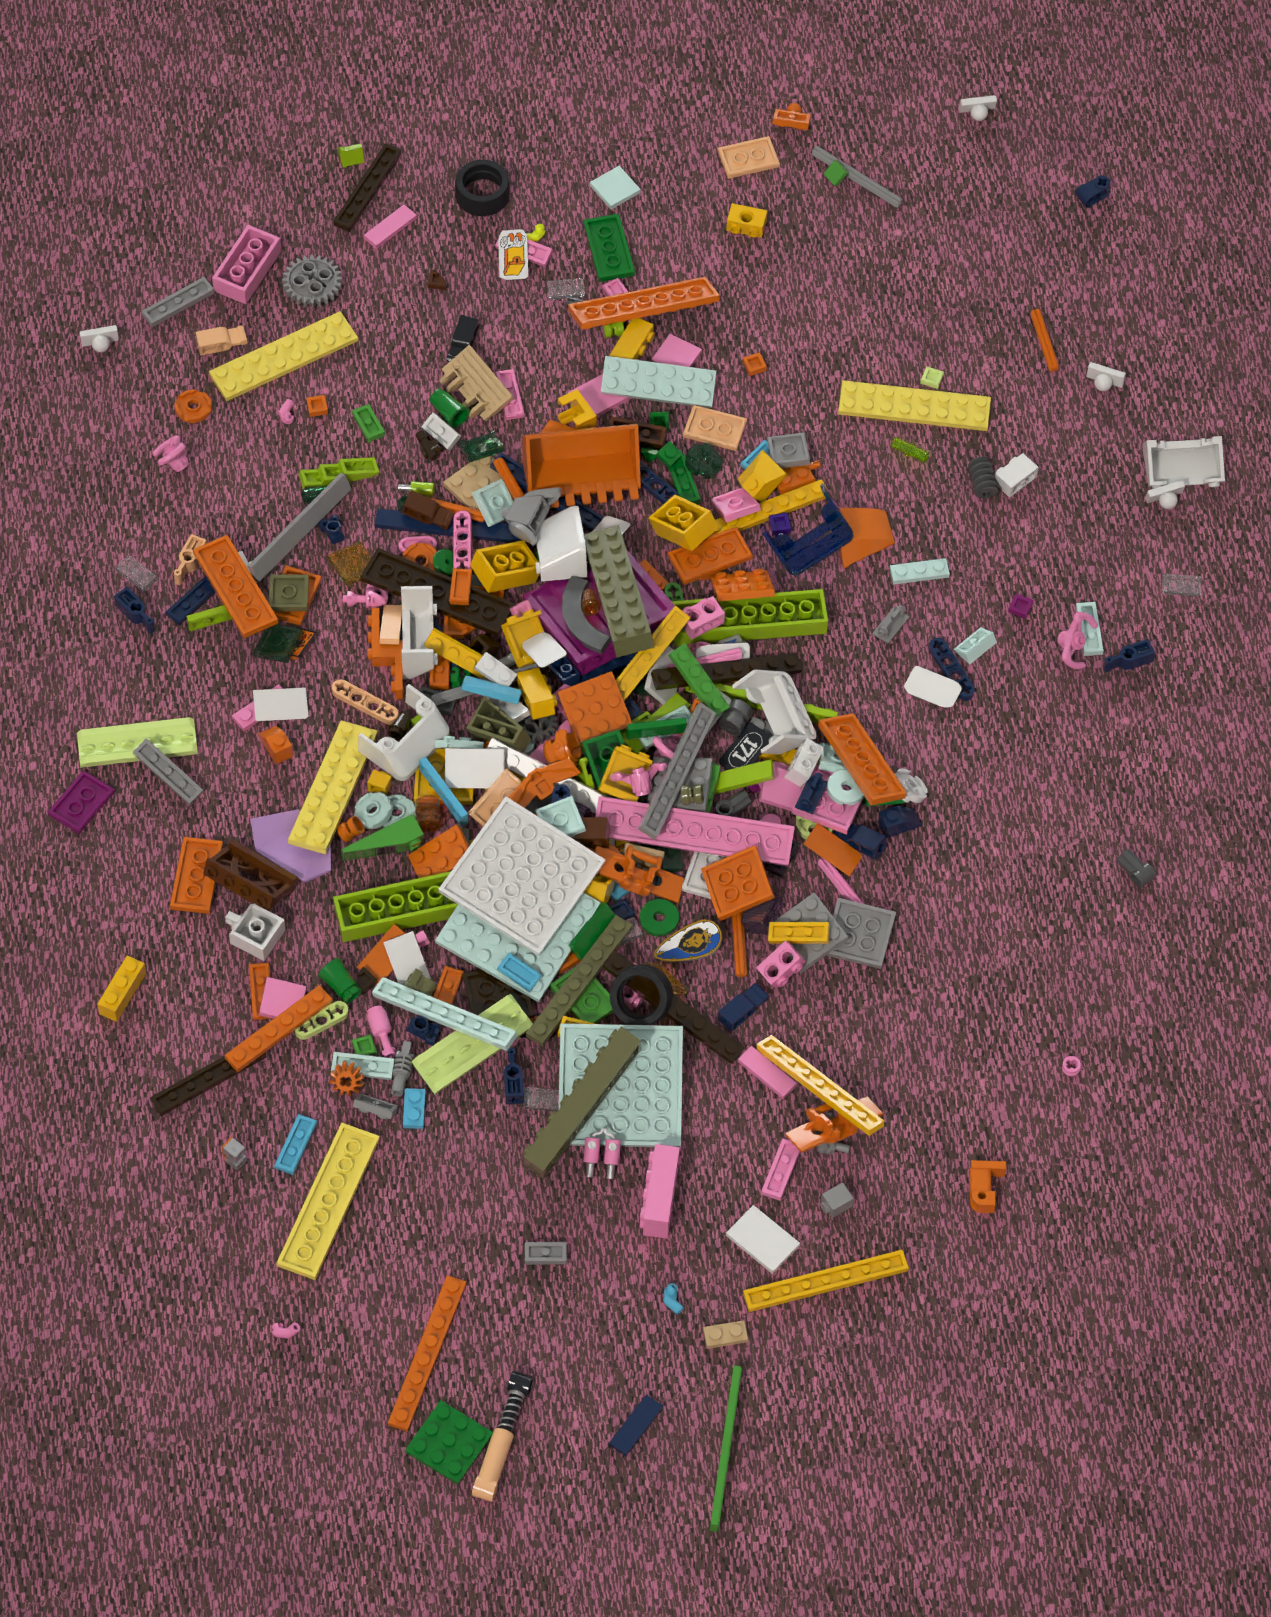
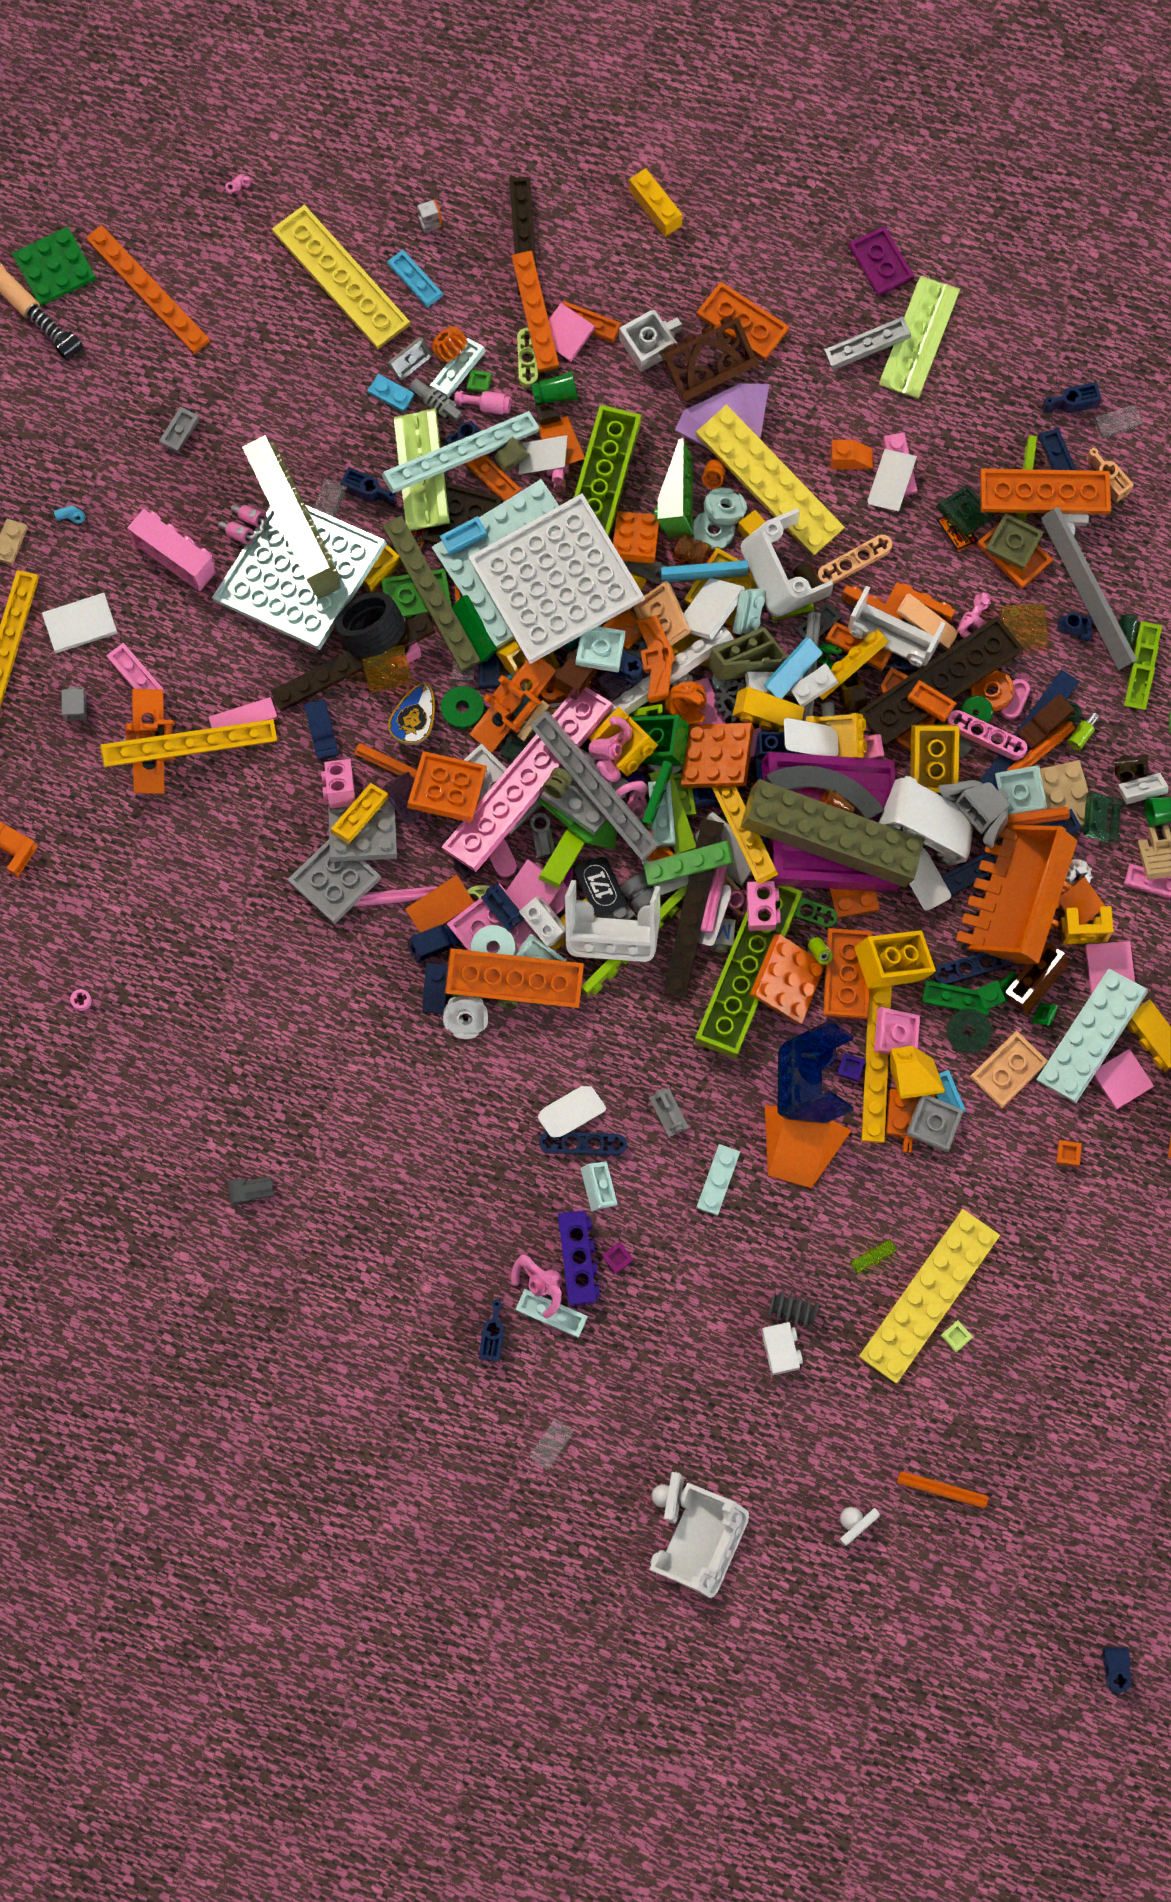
camera: 120 degrees right, 15 degrees up
(704, 578) = (819, 950): none -> lime piece
(1034, 638) = (567, 1224): none -> dark purple brick

